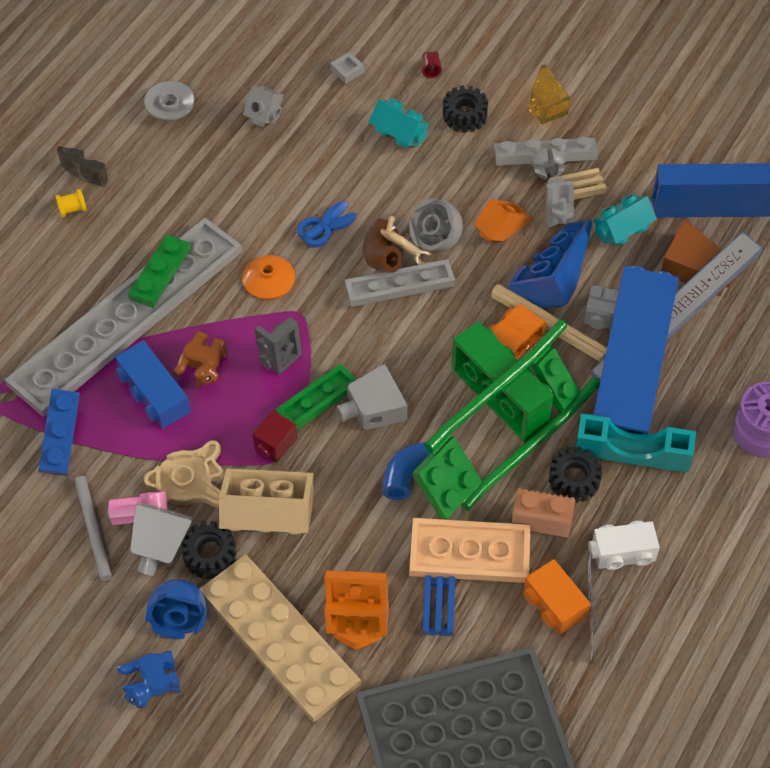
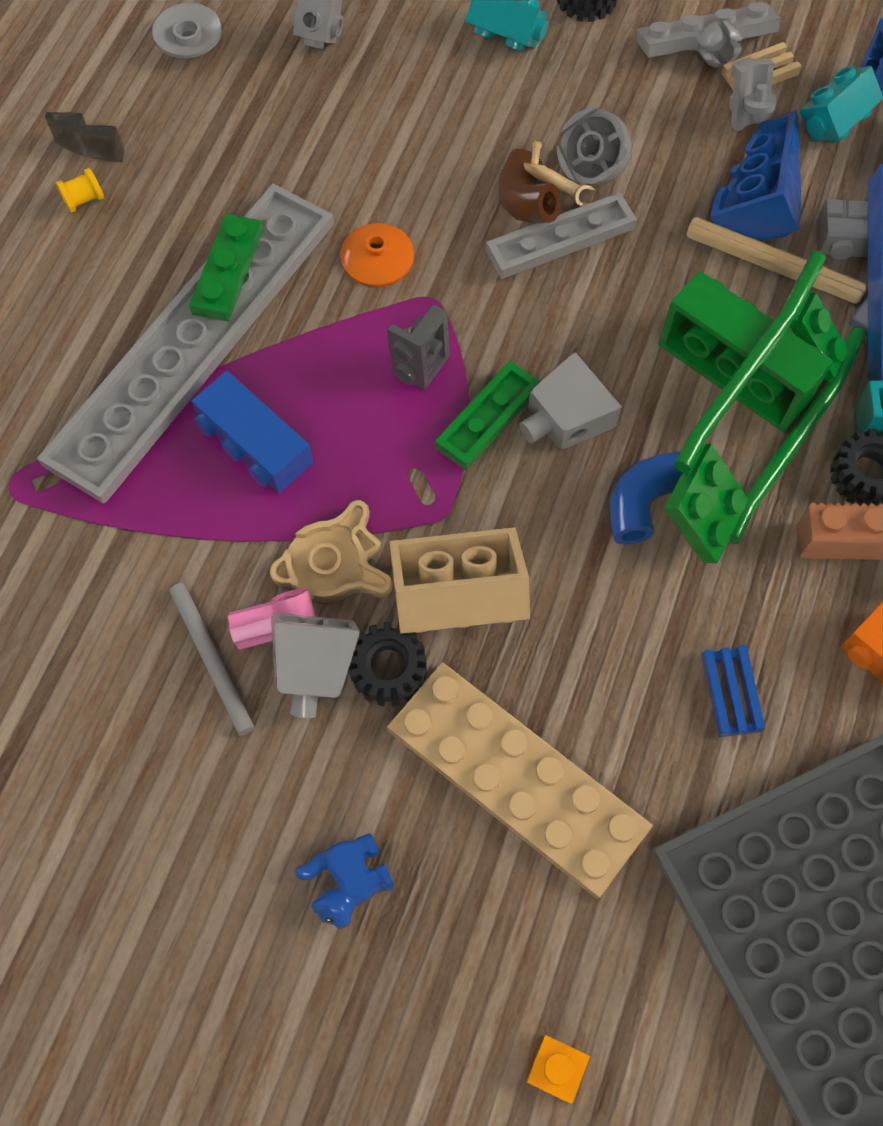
camera: 10 degrees left, 10 degrees up
(59, 432) = (132, 524): blue plate -> none
(176, 609) = (363, 764): blue cylinder -> none
(203, 357) = (315, 382): dark orange animal -> none
(274, 436) = (443, 481): dark red brick -> none
(330, 222) = (444, 167): blue piece -> none
(356, 607) = (626, 715): orange piece -> none
(470, 550) = (757, 602): light nougat plate -> none
(501, 220) = (675, 130): orange slope -> none
(519, 329) = (744, 270): orange brick -> none

